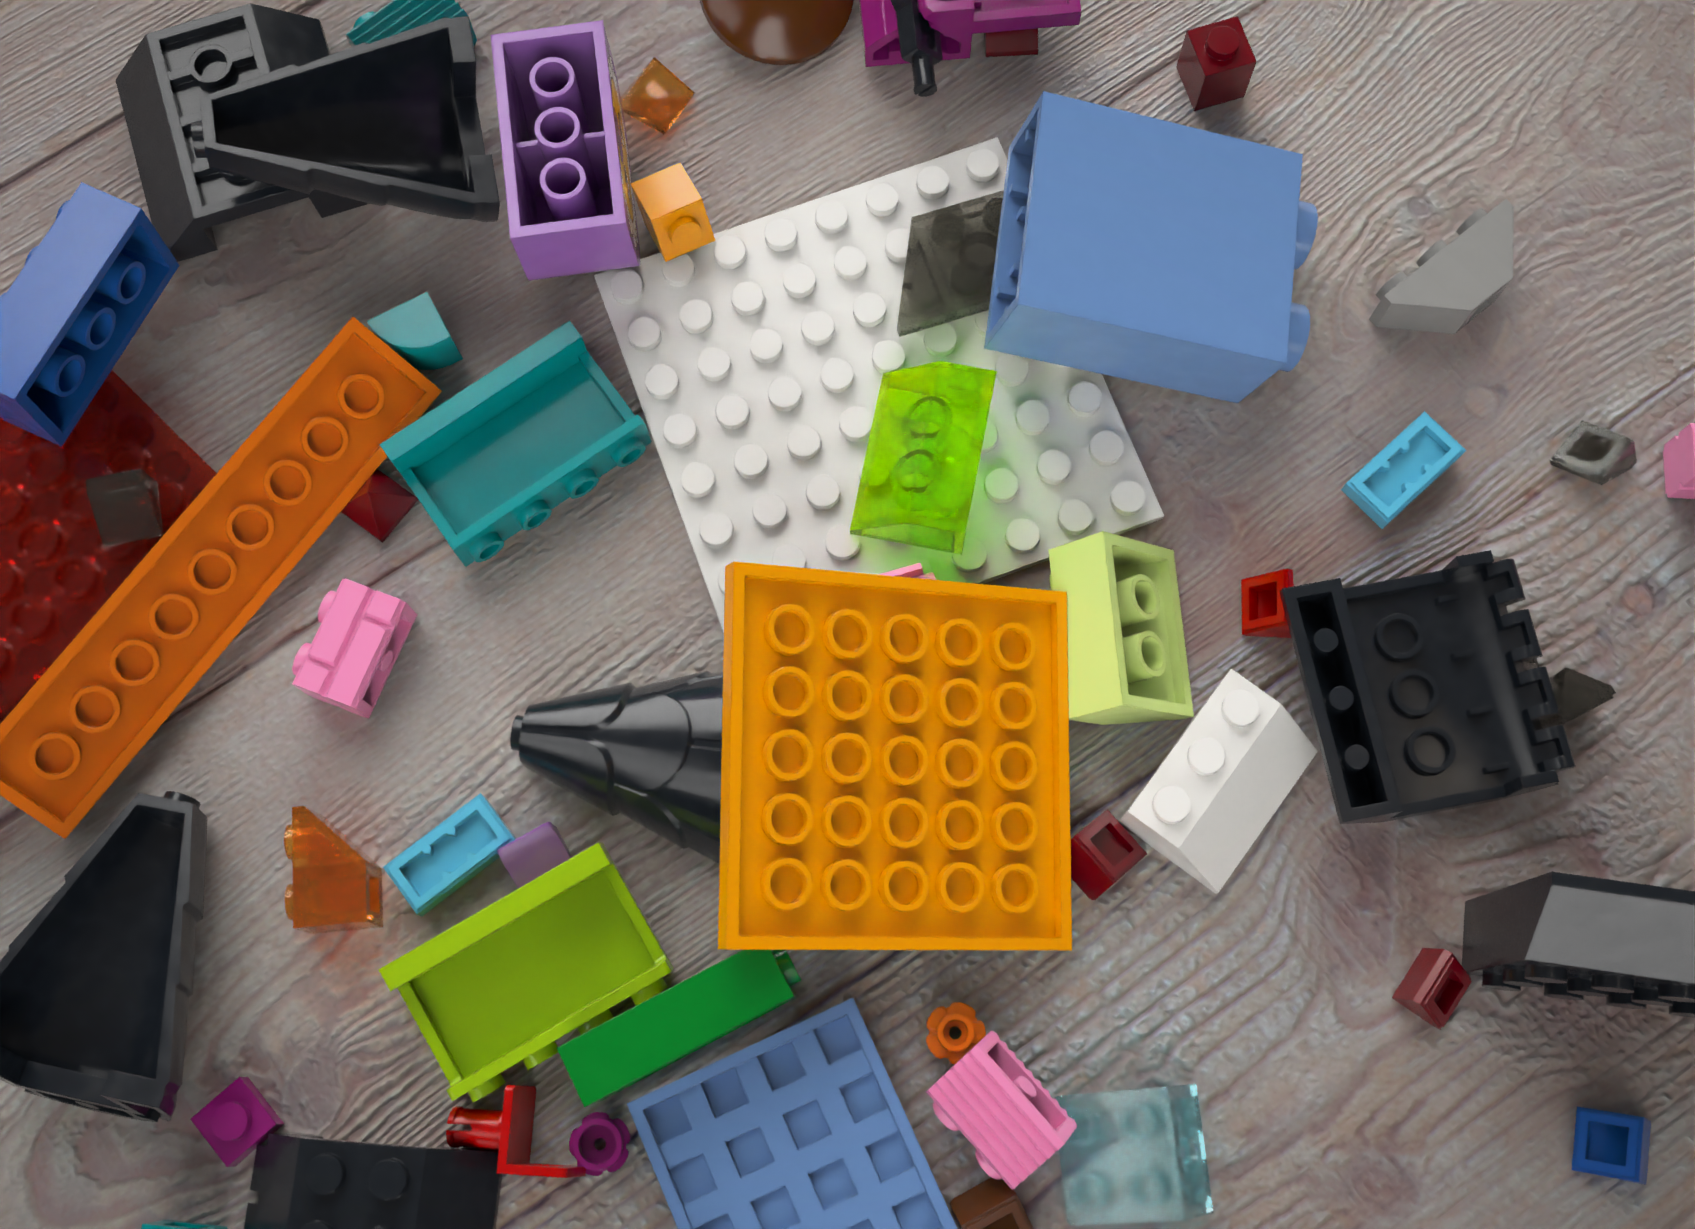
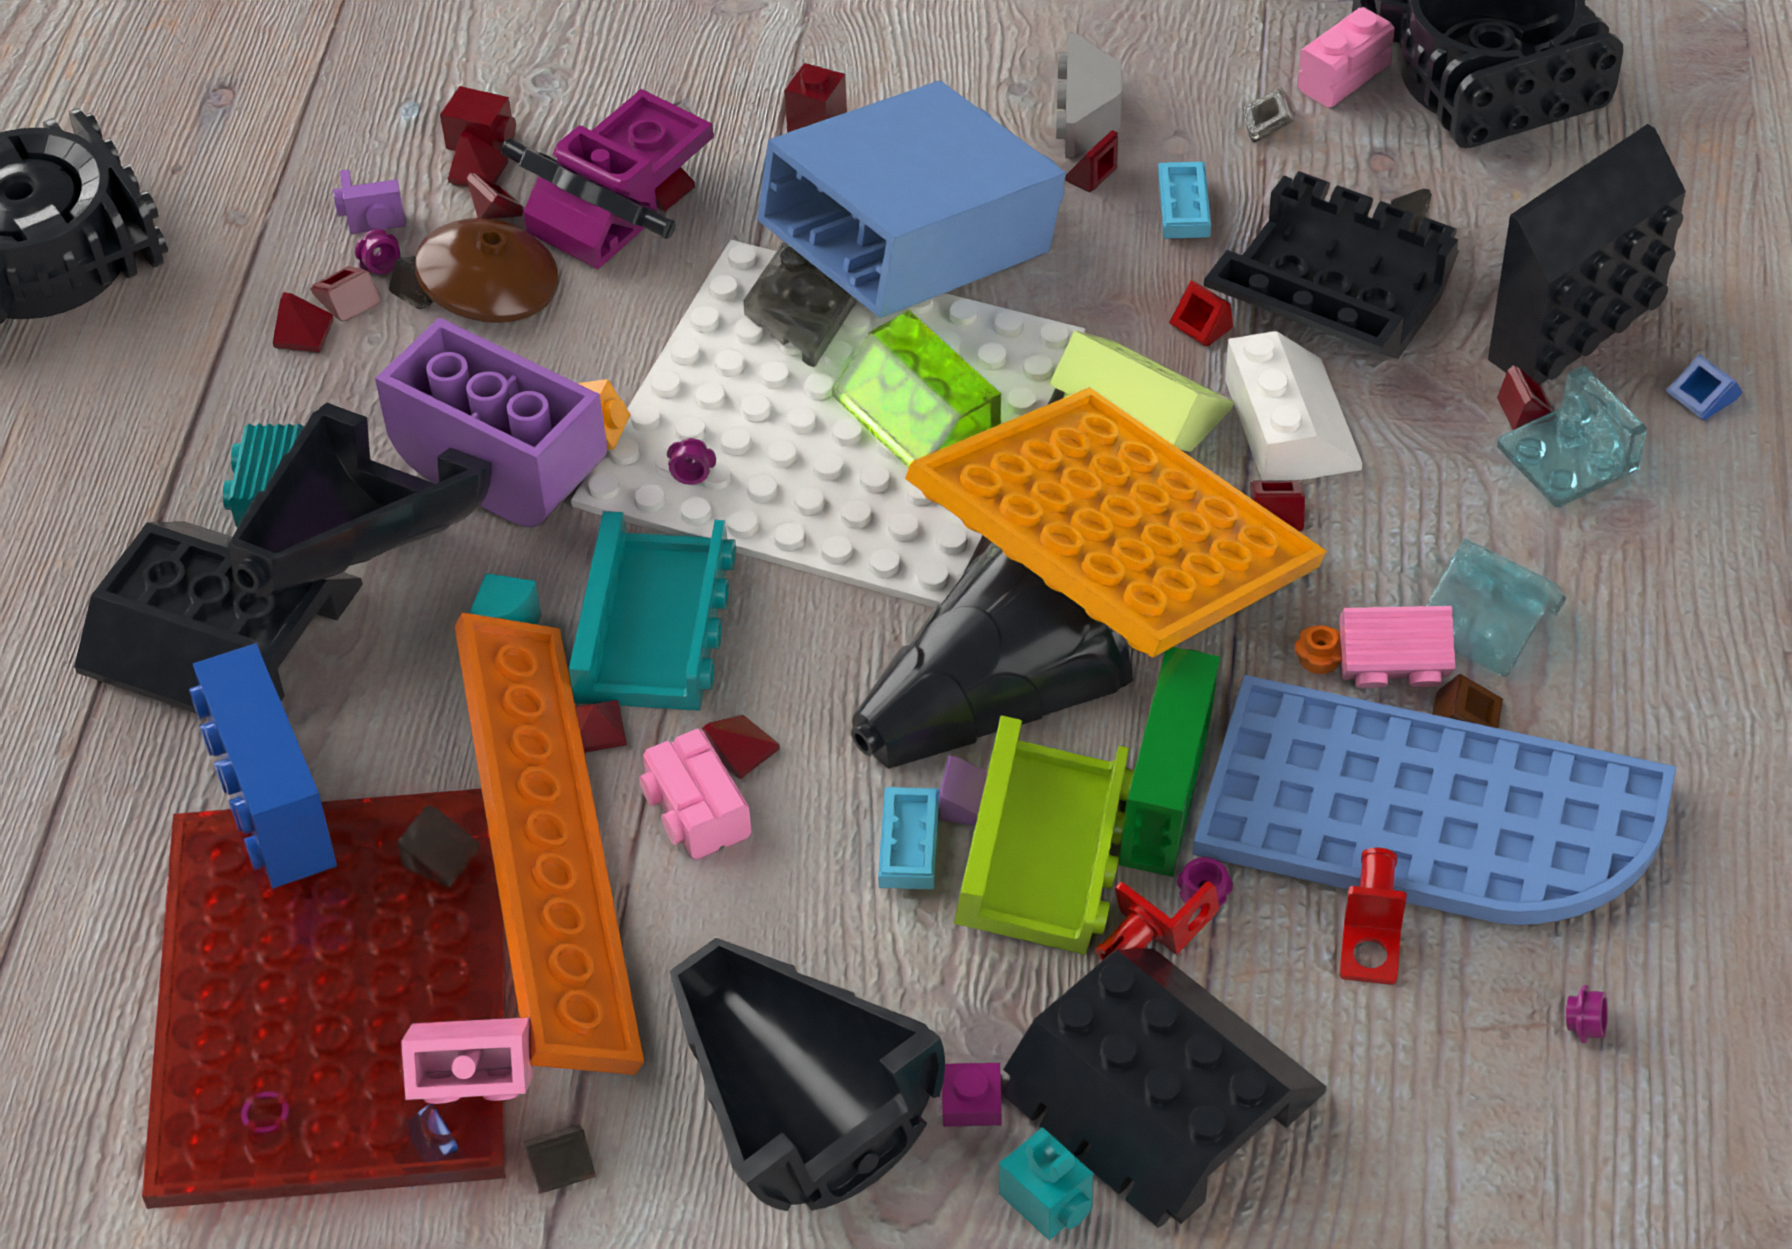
camera: 50 degrees left, 25 degrees down
(333, 879) = (852, 910): clear orange slope -> none
(446, 631) = (740, 744): none -> dark red slope
(694, 335) = (690, 461): none -> magenta plate
(1375, 355) = (1096, 164): none -> dark red slope
(1409, 1080) = (1580, 444): none -> clear light blue bracket

